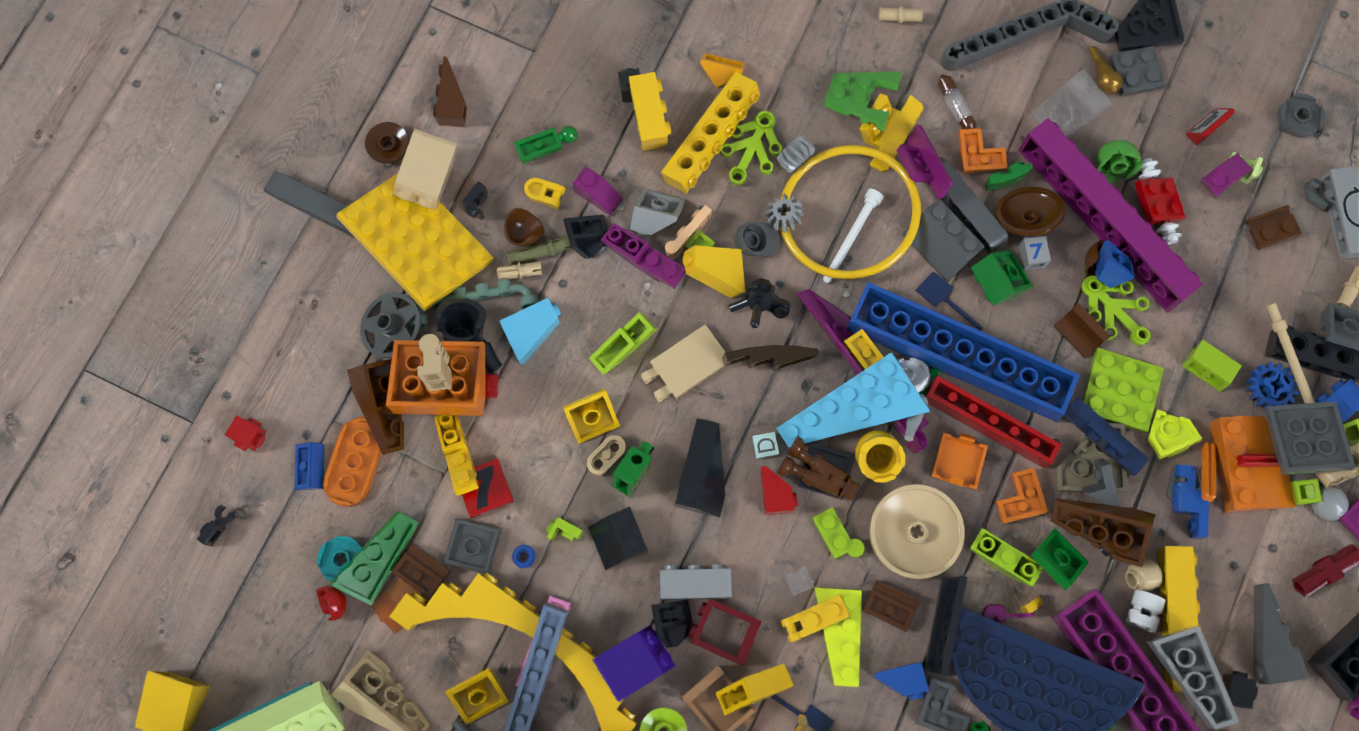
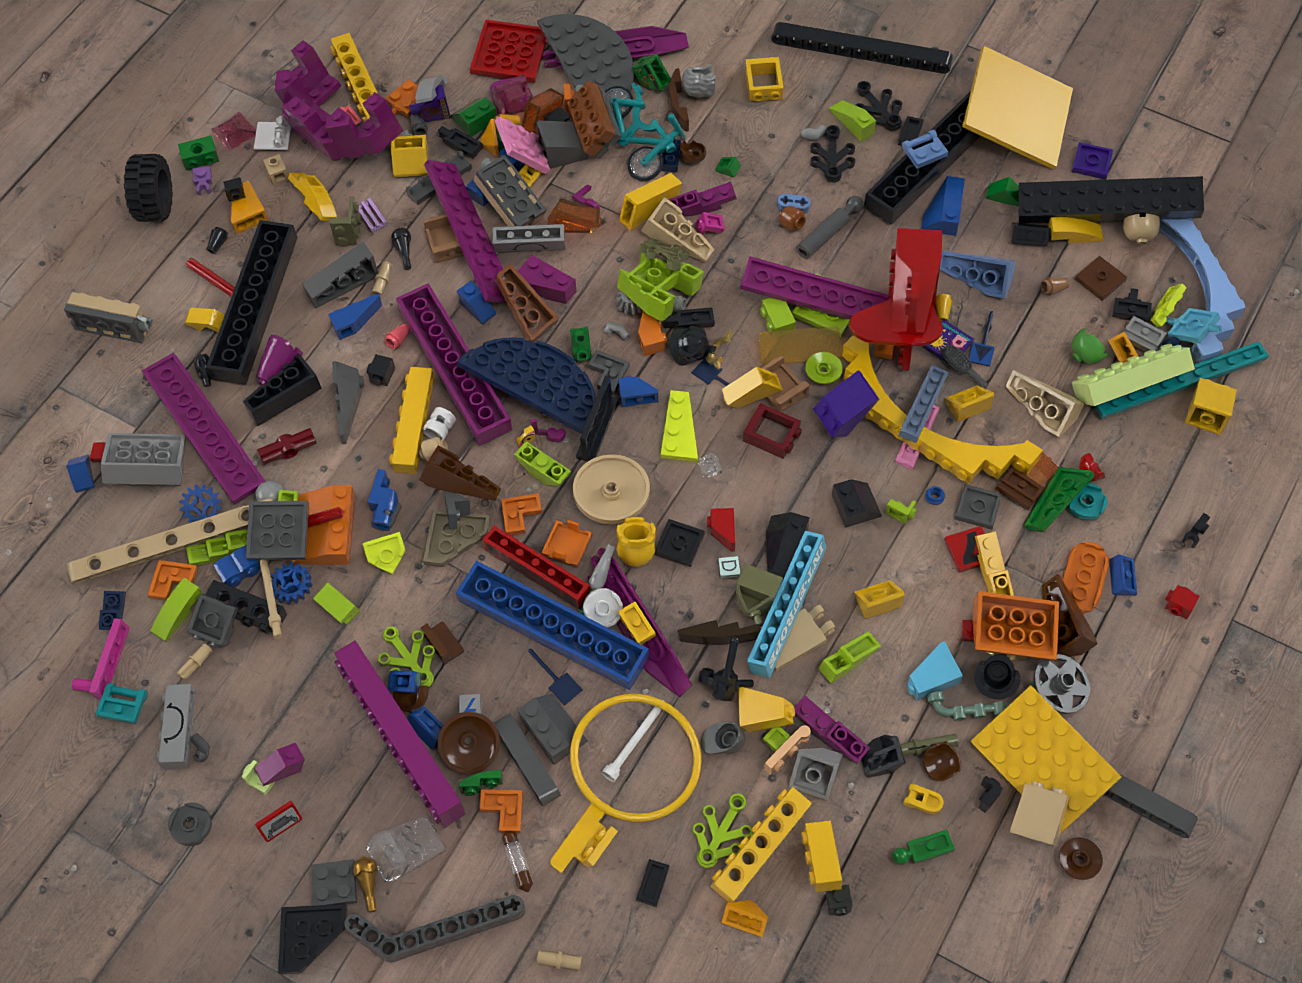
camera: 175 degrees left, 15 degrees down
(435, 369) = (1016, 619): tan legs -> none
(451, 106) = (1018, 898): reddish brown slope -> none
(491, 359) = (972, 656): black cone -> none
(519, 270) = (945, 727): tan axle -> none
(597, 191) = (873, 796): magenta slope -> none
(604, 454) = (865, 567): tan plate -> none
(632, 469) = (844, 549): green torso -> none
(672, 622) = (814, 440): black slope -> none
(695, 582) = (794, 465): light grey brick -> none
(696, 393) = (786, 604): none -> medium azure brick
(731, 402) = (756, 592): none -> olive piece
(778, 208) = (704, 754): light grey gear -> none
(796, 153) = (680, 813): light grey gear -> none
(816, 94) = (653, 883): none -> black tile
(816, 618) = (699, 435): yellow plate -> none
(822, 474) = (685, 532): reddish brown piece -> none
(835, 535) = (676, 496): lime hinge -> none
(853, 92) = (620, 871): bright green wing -> none
(867, 400) = (643, 582): medium azure wing -> none
(891, 605) = (638, 442): reddish brown plate -> none
(924, 163) = (563, 791): magenta bracket -> none
(1001, 277) = (503, 690): green slope -> none
(1059, 558) = (500, 460): green plate -> none
(1075, 235) = (426, 726): none -> blue slope
(1106, 437) = (443, 547): dark blue bracket -> none
(1118, 160) = (376, 789): bright green cylinder -> none
(1123, 389) = (417, 592): lime plate -> none
(1159, 201) = (346, 749): red plate -> none
(1196, 674) = (418, 377): light grey wedge -> none
(1208, 472) = (363, 518): orange axle -> none
(1273, 227) = (247, 722): reddish brown plate -> none

